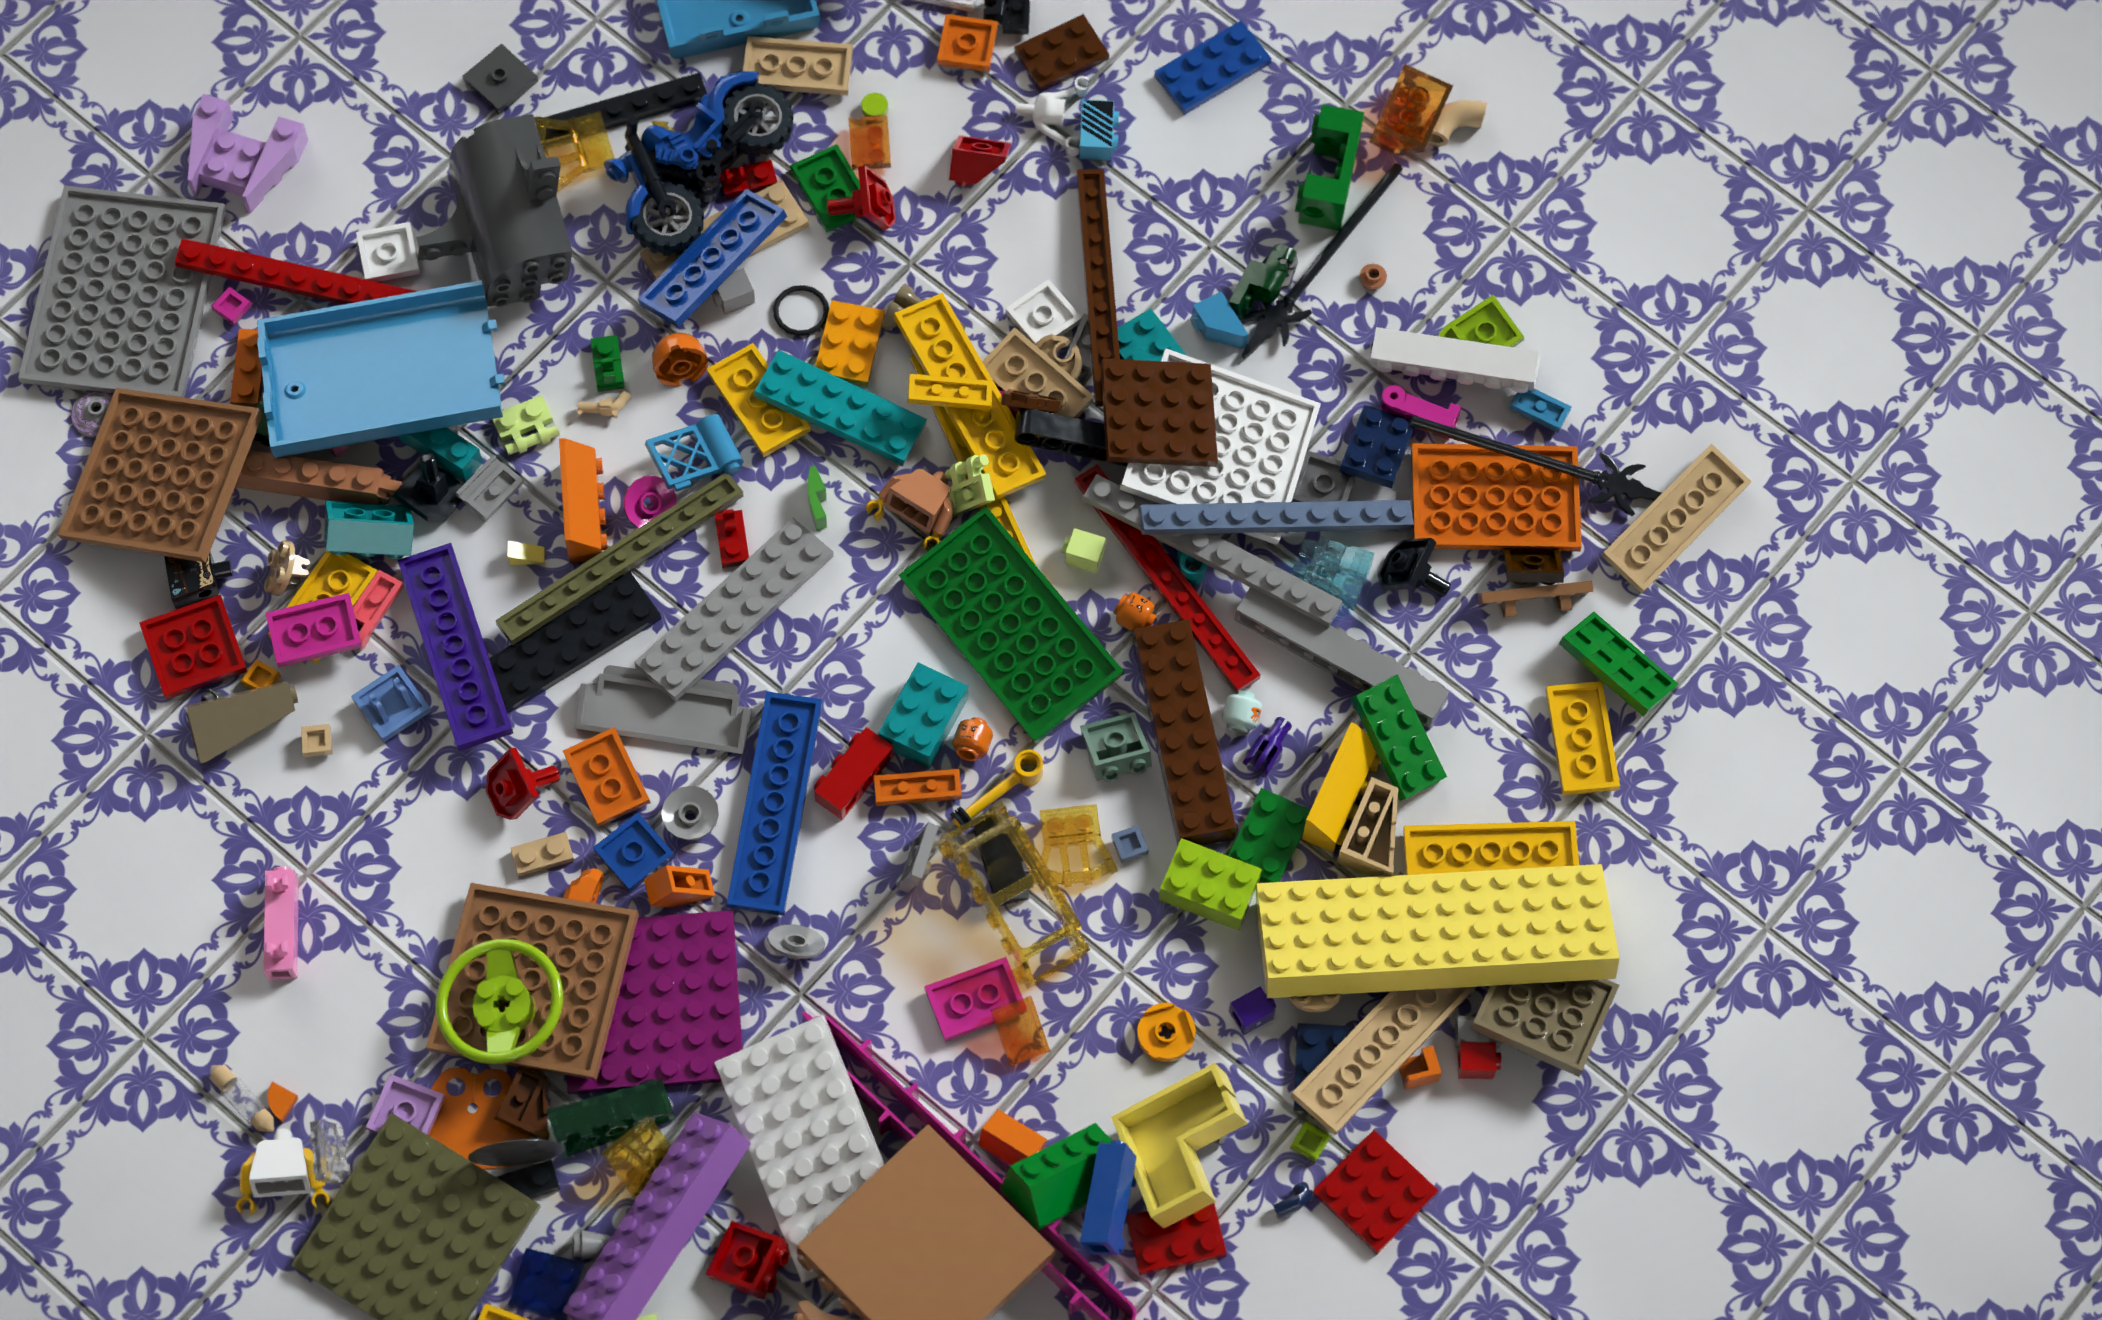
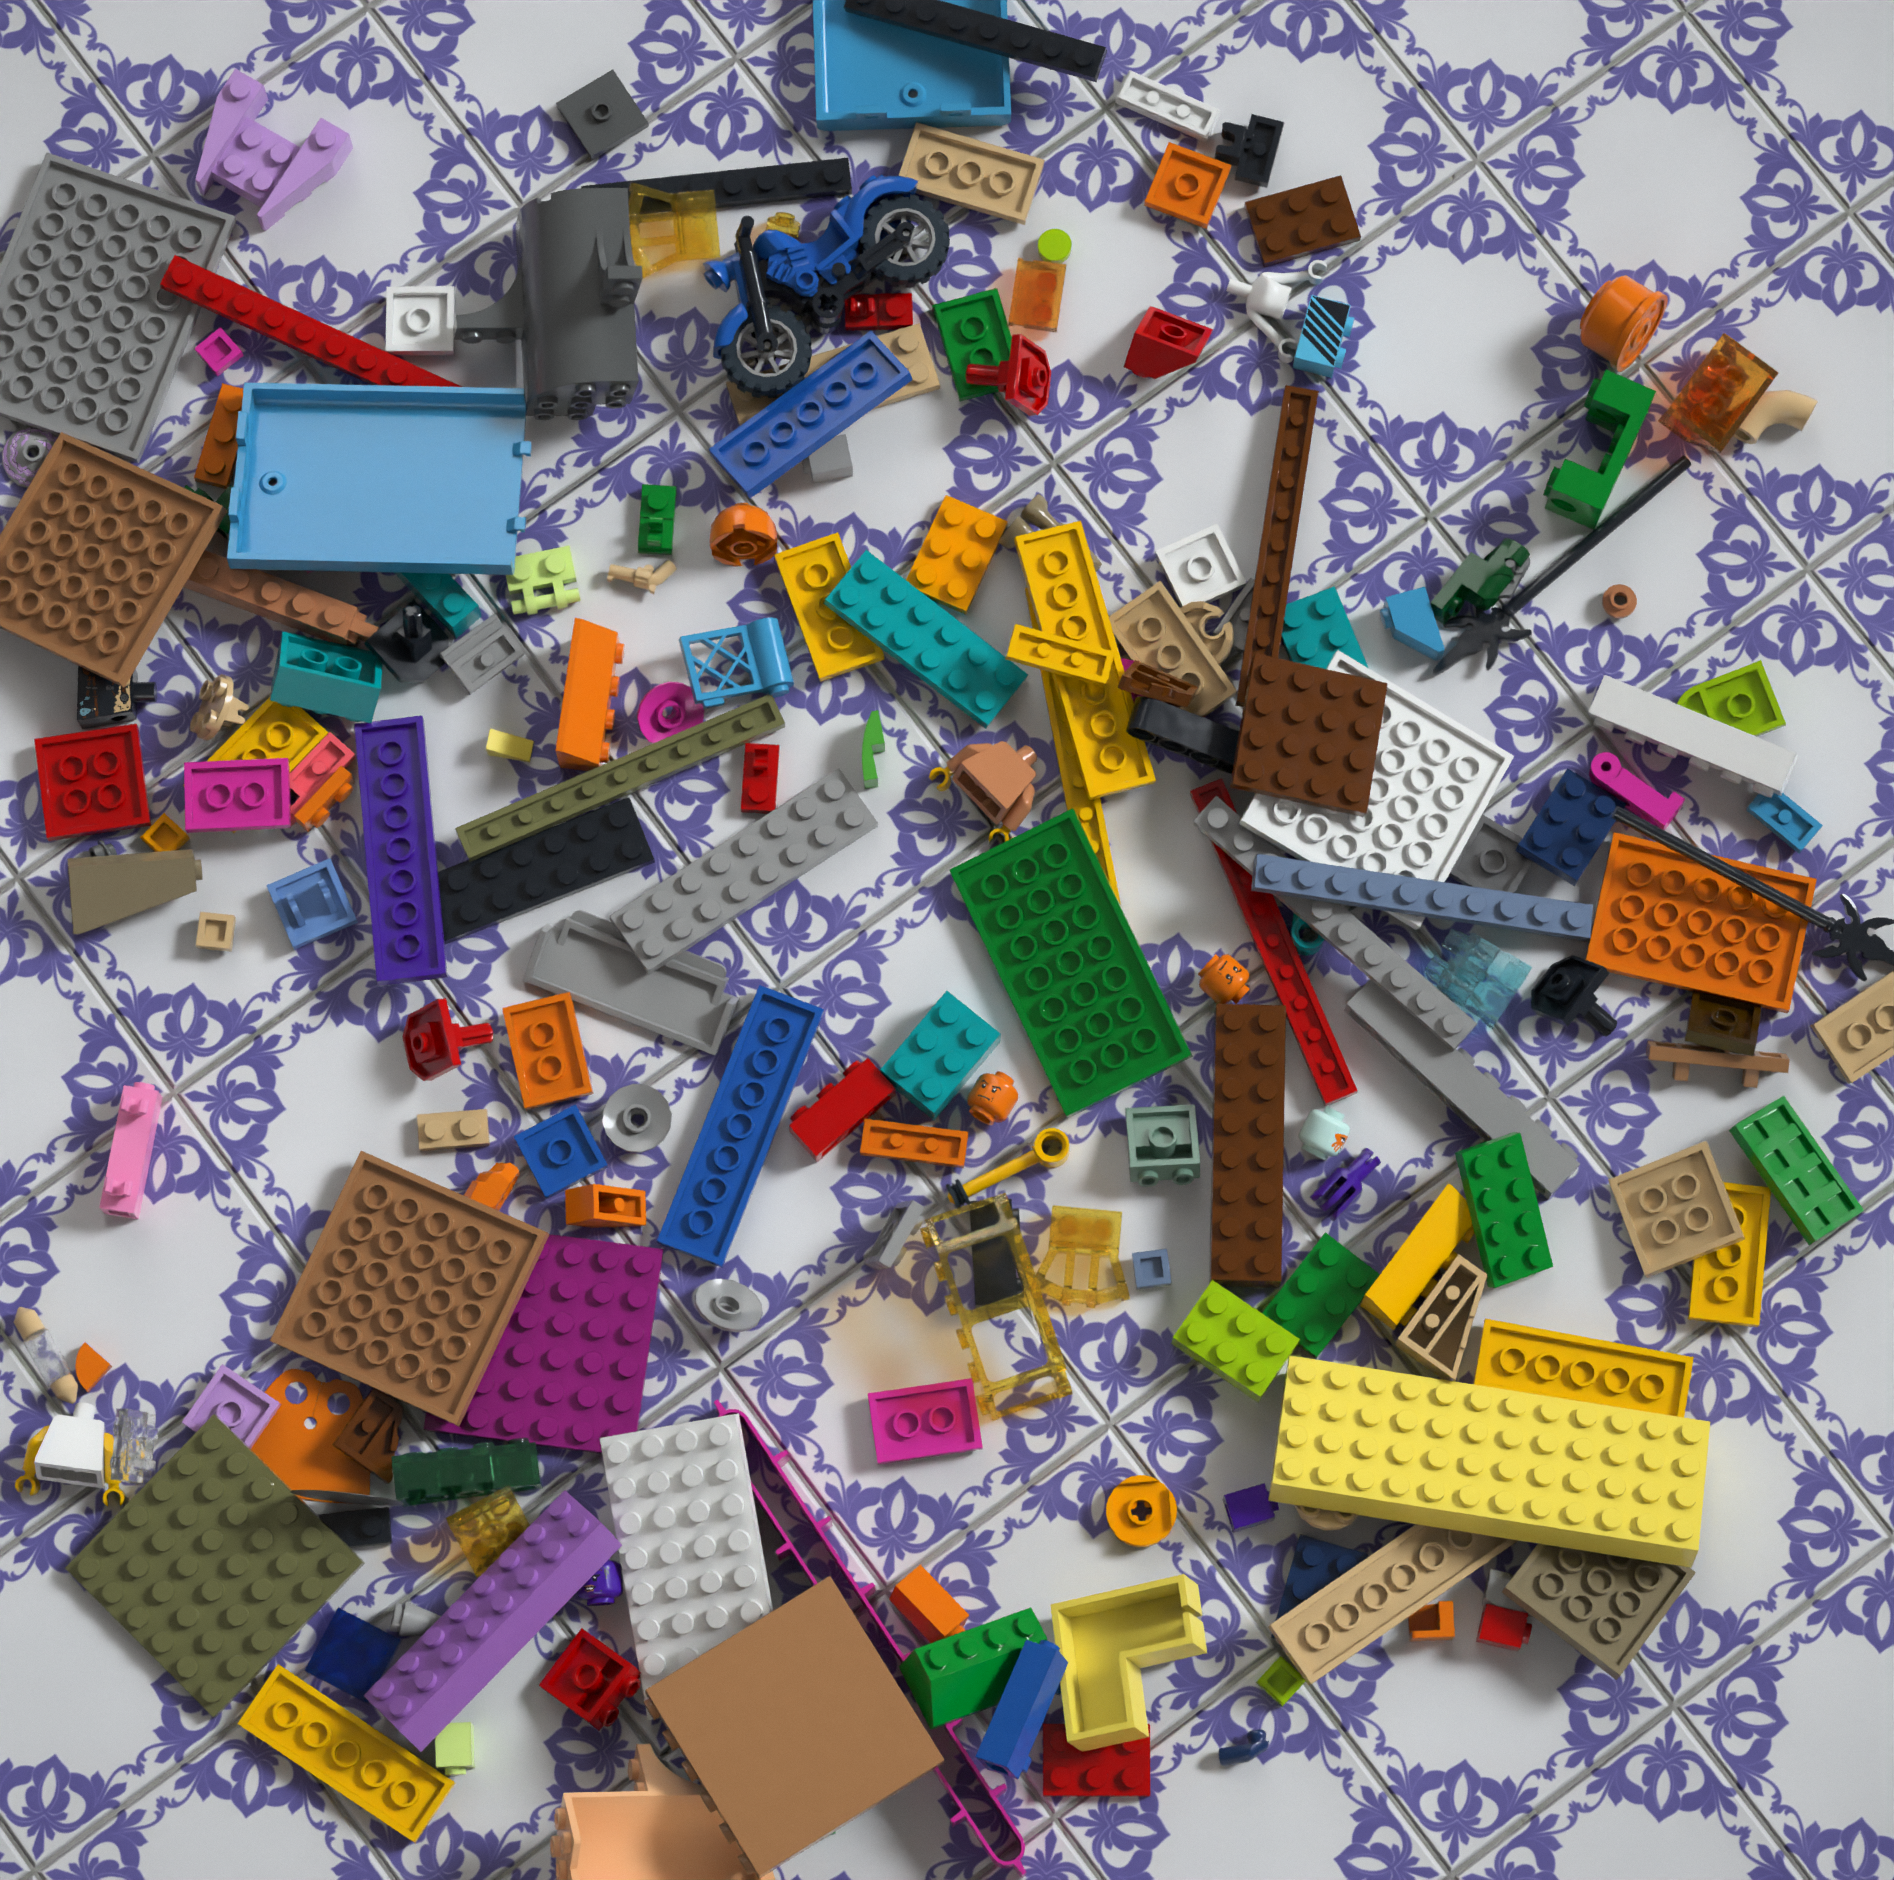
camera: 15 degrees right, 10 degrees up
(380, 629) = (317, 808): none -> orange plate
(500, 987) = (372, 1291): lime piece -> none
(742, 1182) = (603, 1585): none -> dark purple head
(800, 288) = (906, 468): black piece -> none
(971, 492) = (1062, 785): yellowish green plate -> none
(1020, 1030) = (968, 1472): clear orange plate -> none
(1084, 550) = (1180, 885): yellowish green brick -> none
(1212, 67) = (1486, 279): blue plate -> none
(1324, 71) = (1621, 320): none -> orange wheel
(1375, 1192) = (1343, 1759): red plate -> none
(1533, 711) = (1676, 1209): none -> tan plate

